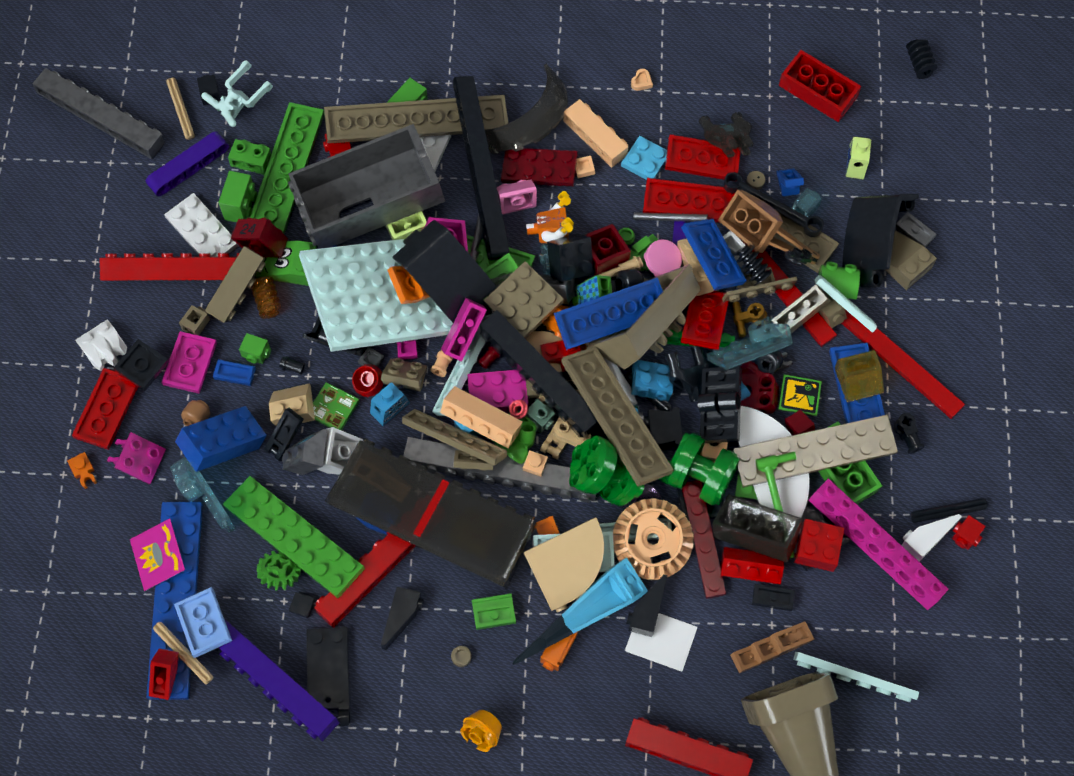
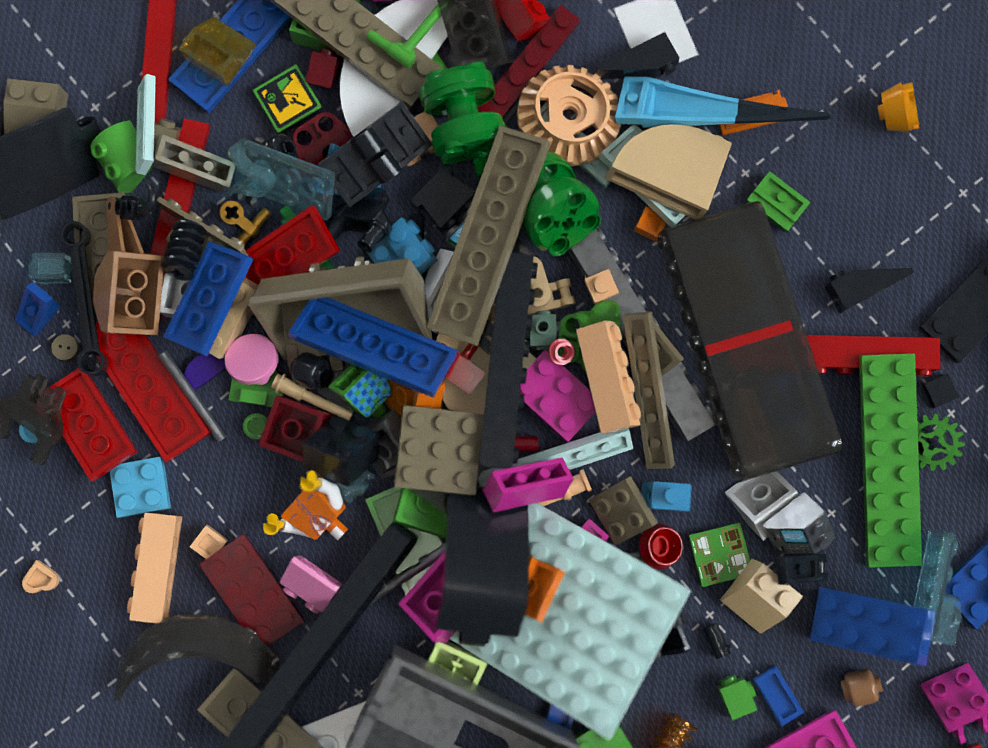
camera: 130 degrees left, 15 degrees up
(461, 656) = (845, 196): dark tan tile -> none

